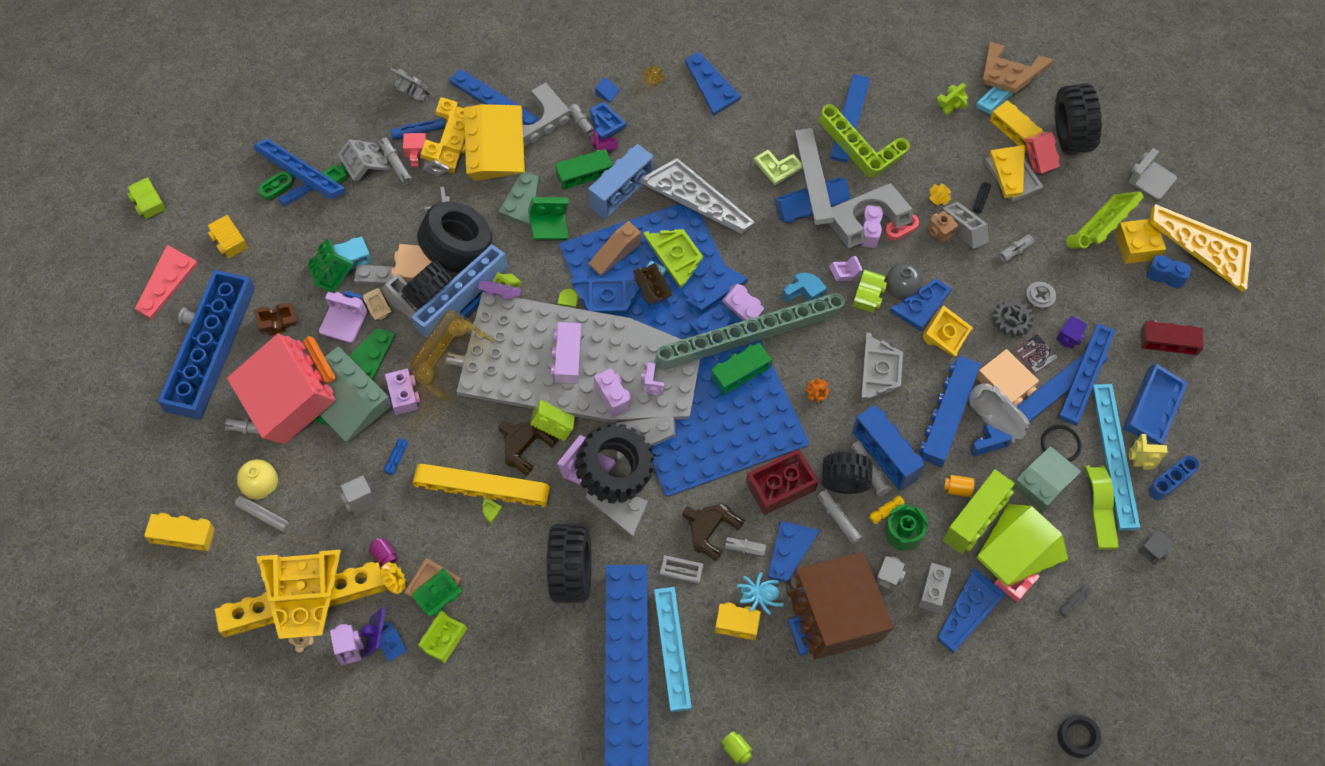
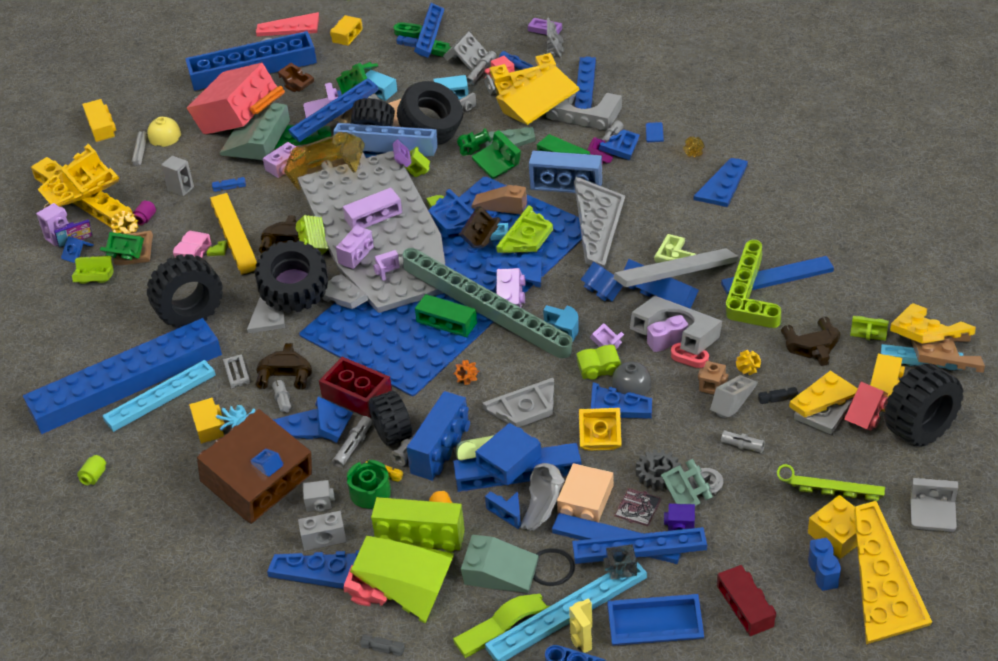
camera: 65 degrees right, 20 degrees down
(374, 311) = (332, 110): none -> blue plate
(376, 78) = (540, 26): none -> medium lavender plate
(409, 200) = (457, 84): none -> medium azure brick
(476, 531) = (193, 243): none -> bright pink brick
(508, 227) = (472, 142): none -> green connector
(778, 235) = (602, 281): none -> blue brick
(805, 520) = (331, 419): none -> blue wing
(860, 591) = (267, 462): none -> blue slope
(913, 429) = (467, 448): none -> yellowish green brick
(948, 142) = (814, 344): none -> dark brown connector
(950, 407) = (508, 453): none -> blue brick
(984, 70) = (923, 330): none -> yellow wing
(1047, 314) = (681, 489): none -> sand green plate
(1105, 388) = (620, 561): none -> clear smoke brick

